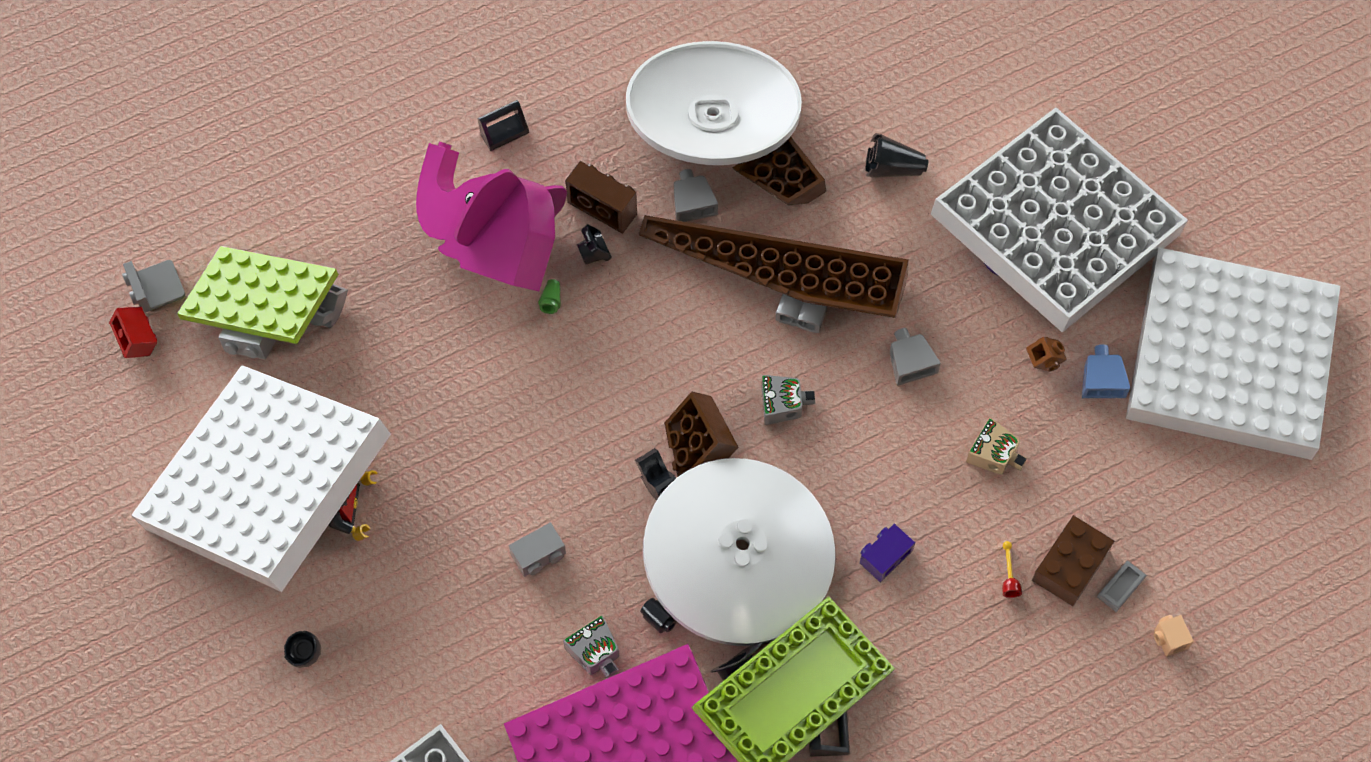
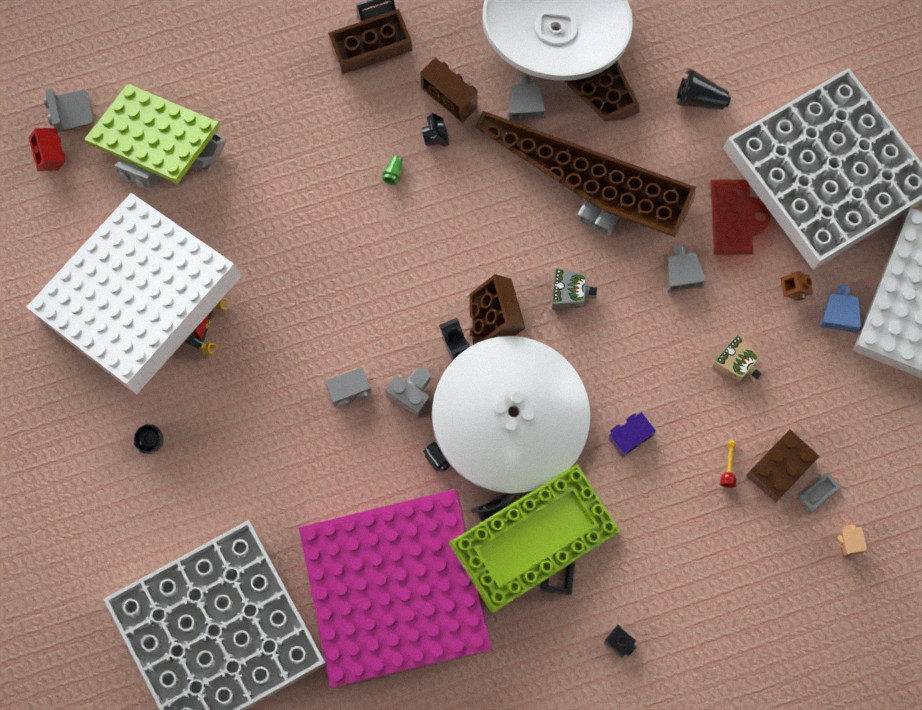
camera: 10 degrees right, 10 degrees up
(490, 222) = (350, 102): dark pink animal -> none
(511, 148) = (370, 41): none -> reddish brown brick
(594, 648) = (381, 476): torso -> none
(613, 545) = (410, 393): none -> light grey brick
(959, 289) = (735, 217): none -> clear red plate

